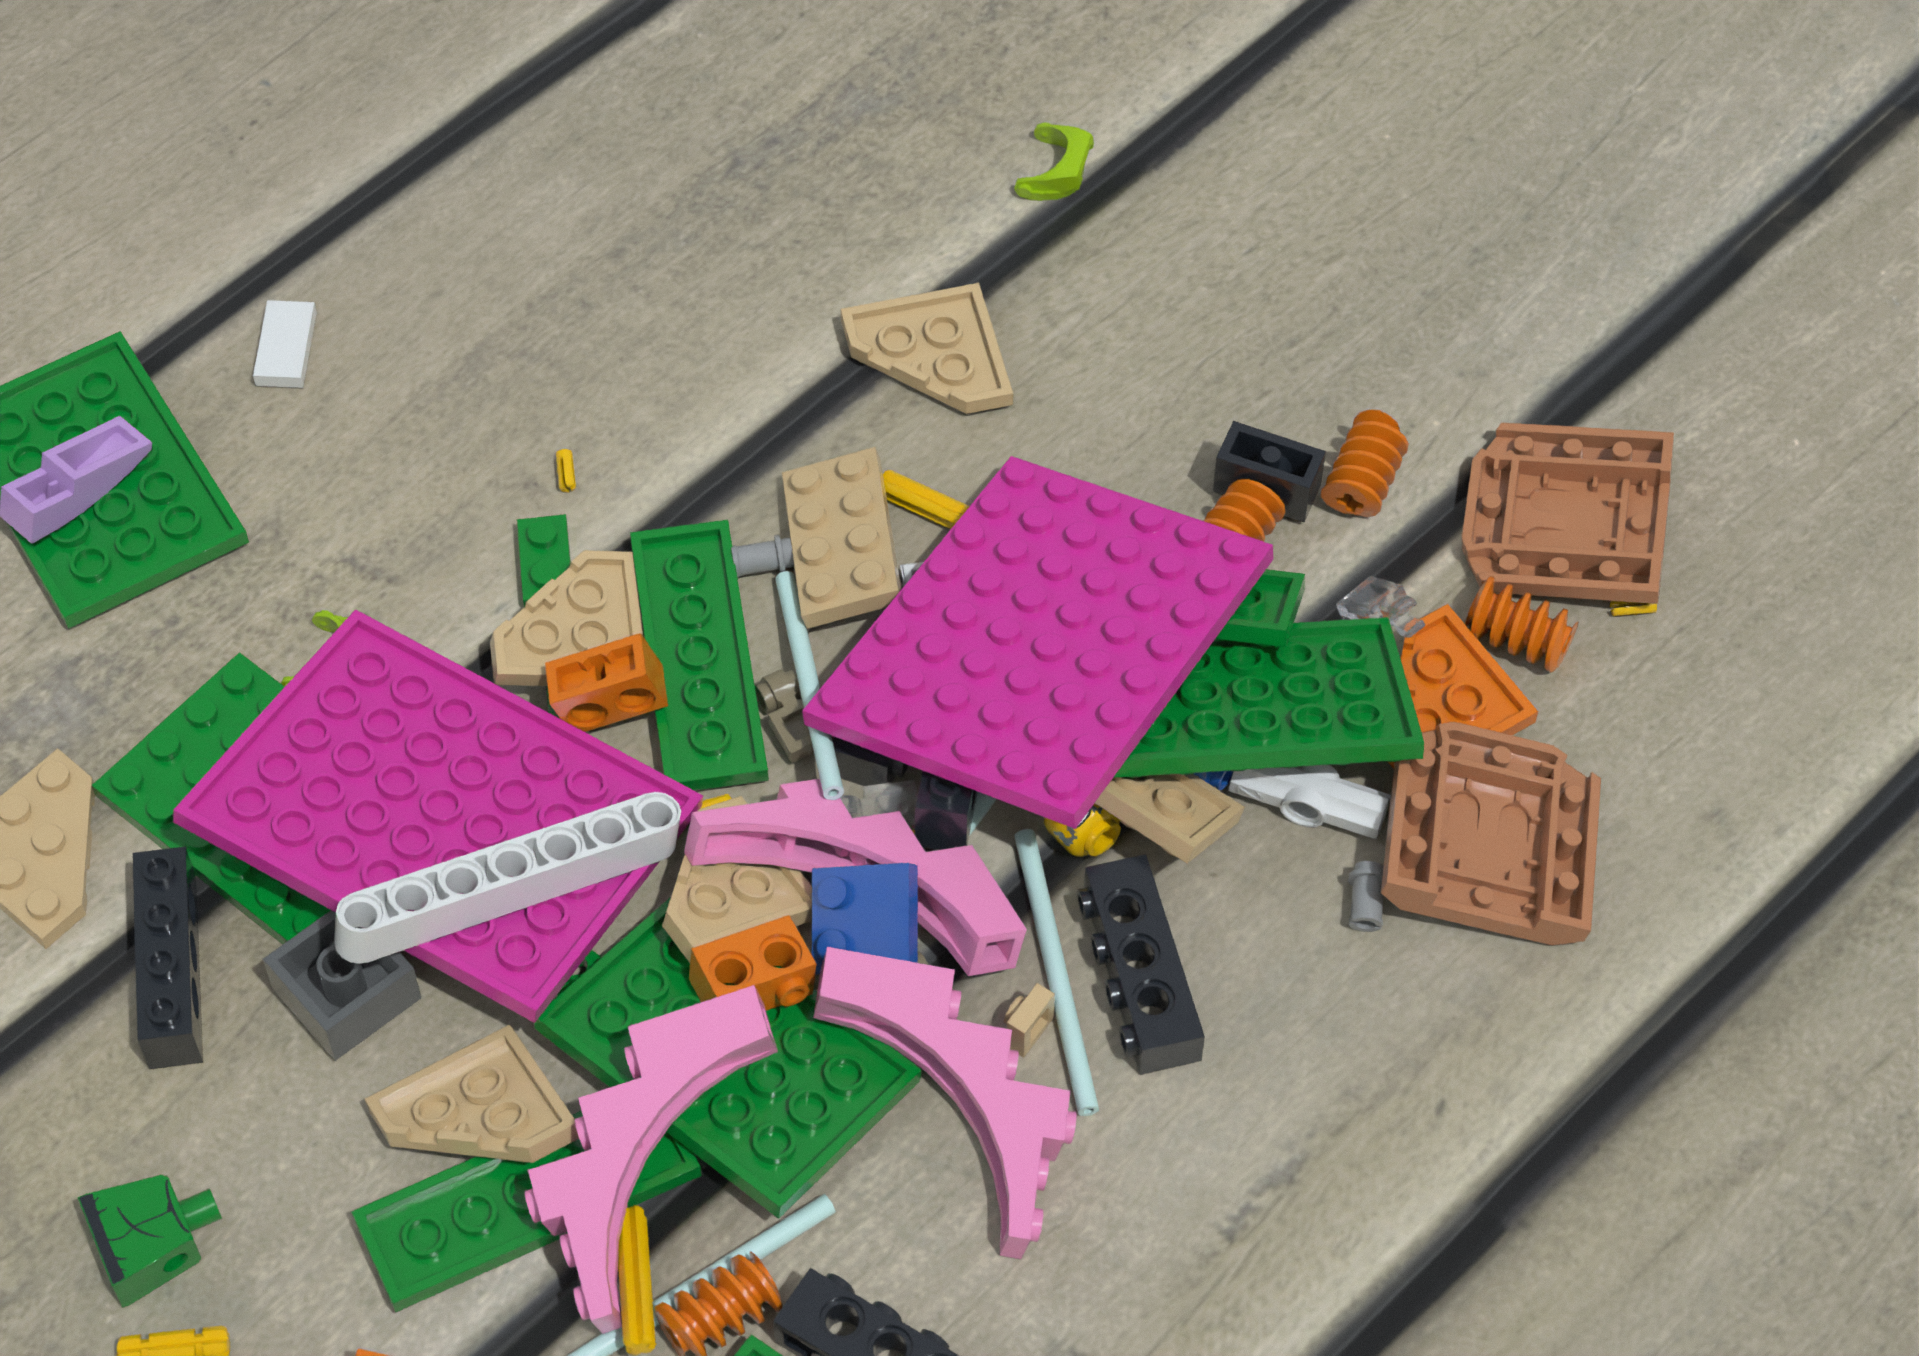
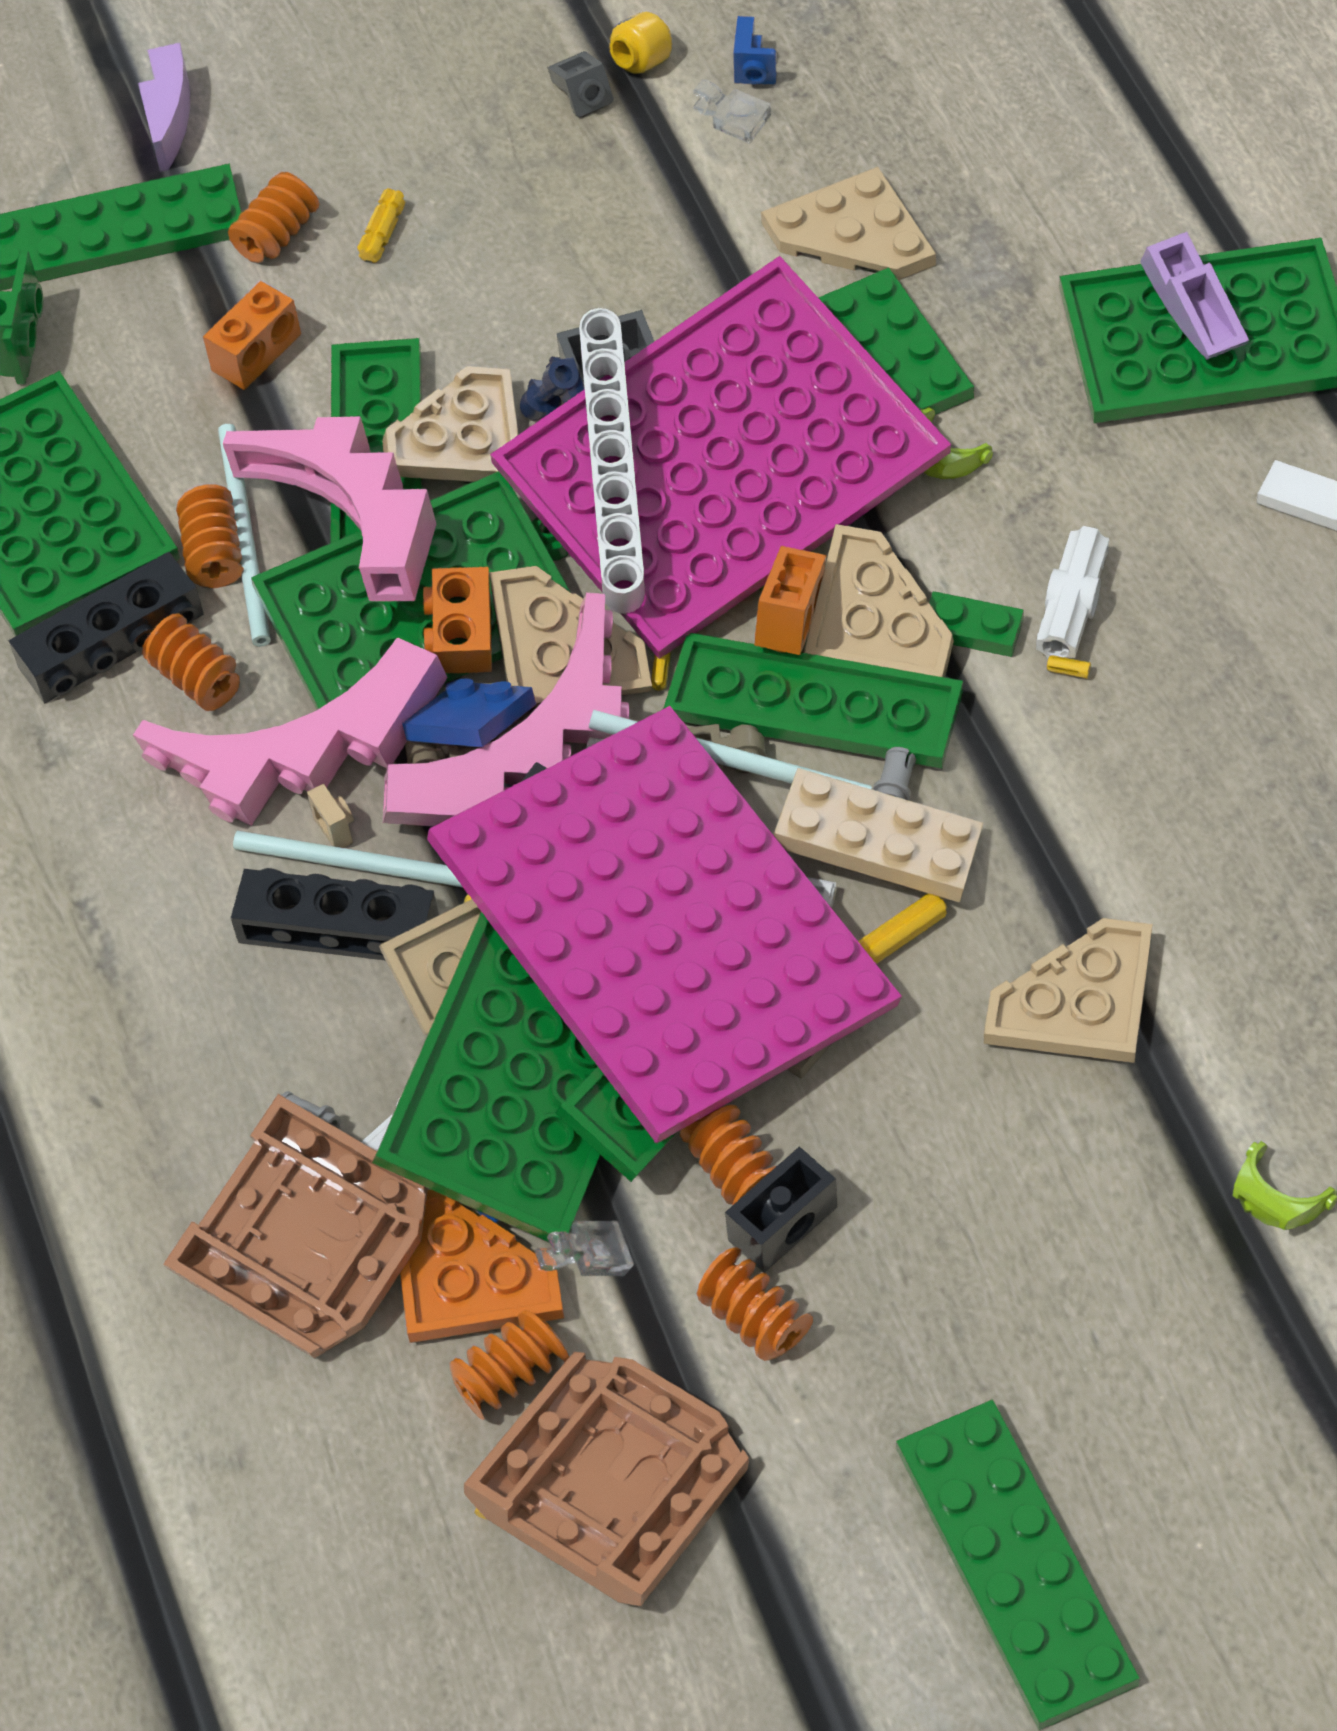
camera: 120 degrees right, 0 degrees up
(146, 1233) = (475, 219): green torso -> none
(167, 958) = (676, 269): black brick -> none
(400, 1040) = (558, 383): none -> dark blue piece
(483, 484) = (1072, 593): none -> white piece
(635, 1283) = (266, 492): yellow axle -> none
(894, 1242) = (192, 662): none -> orange piece
(1472, 237) = (1017, 1565): none -> green plate

